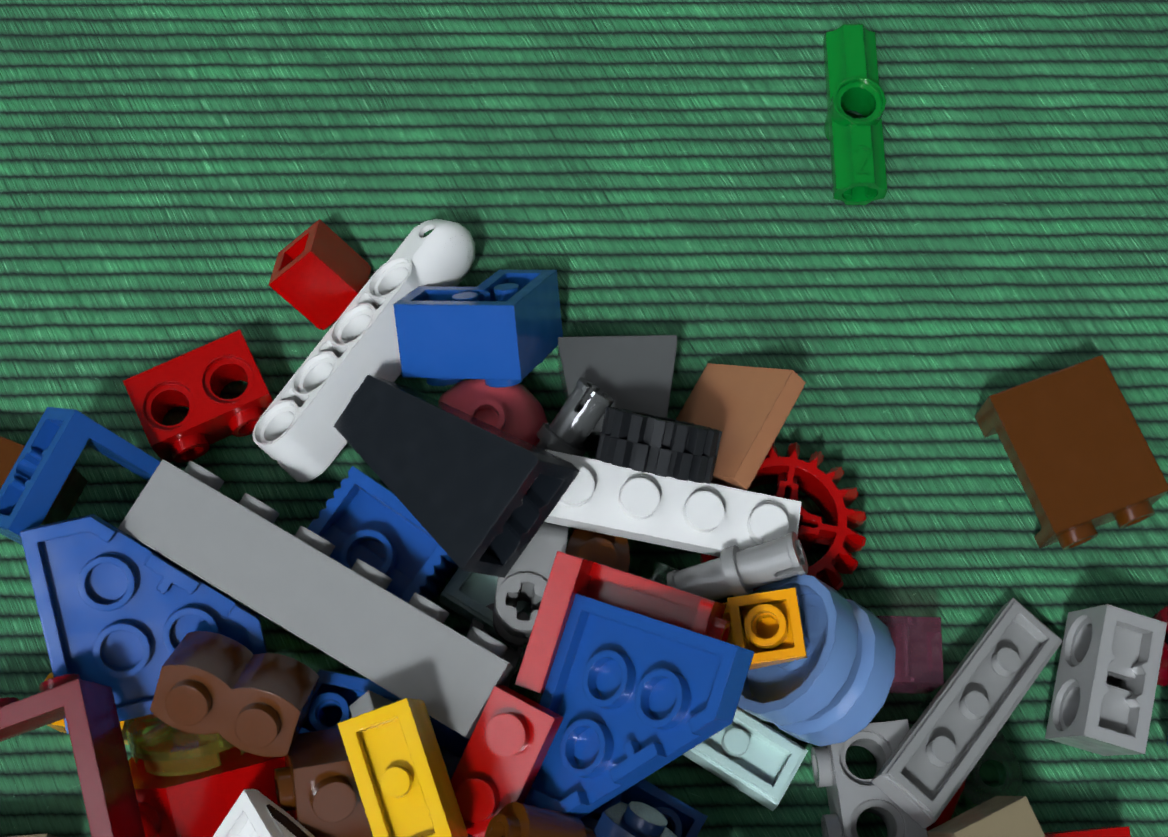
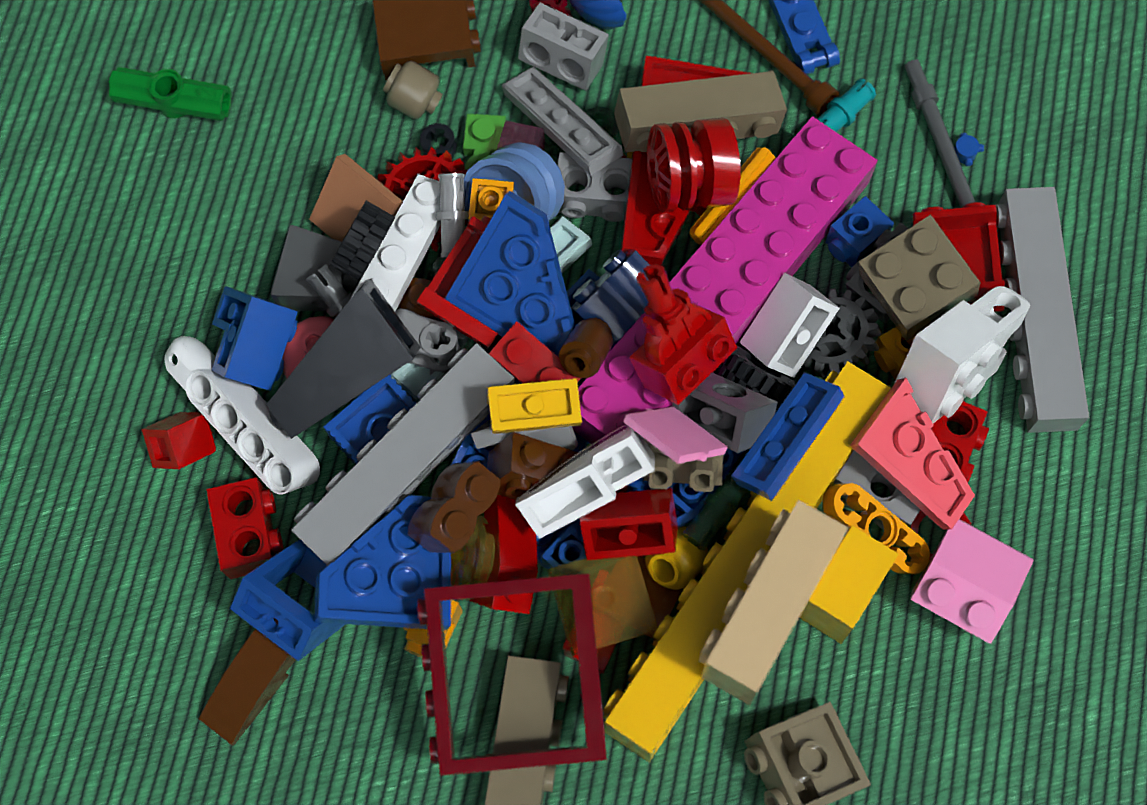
camera: 70 degrees left, 0 degrees up
(902, 510) = (438, 131): none -> black bush
(909, 589) = (481, 136): none -> bright green plate
(961, 460) = (412, 90): none -> dark tan head

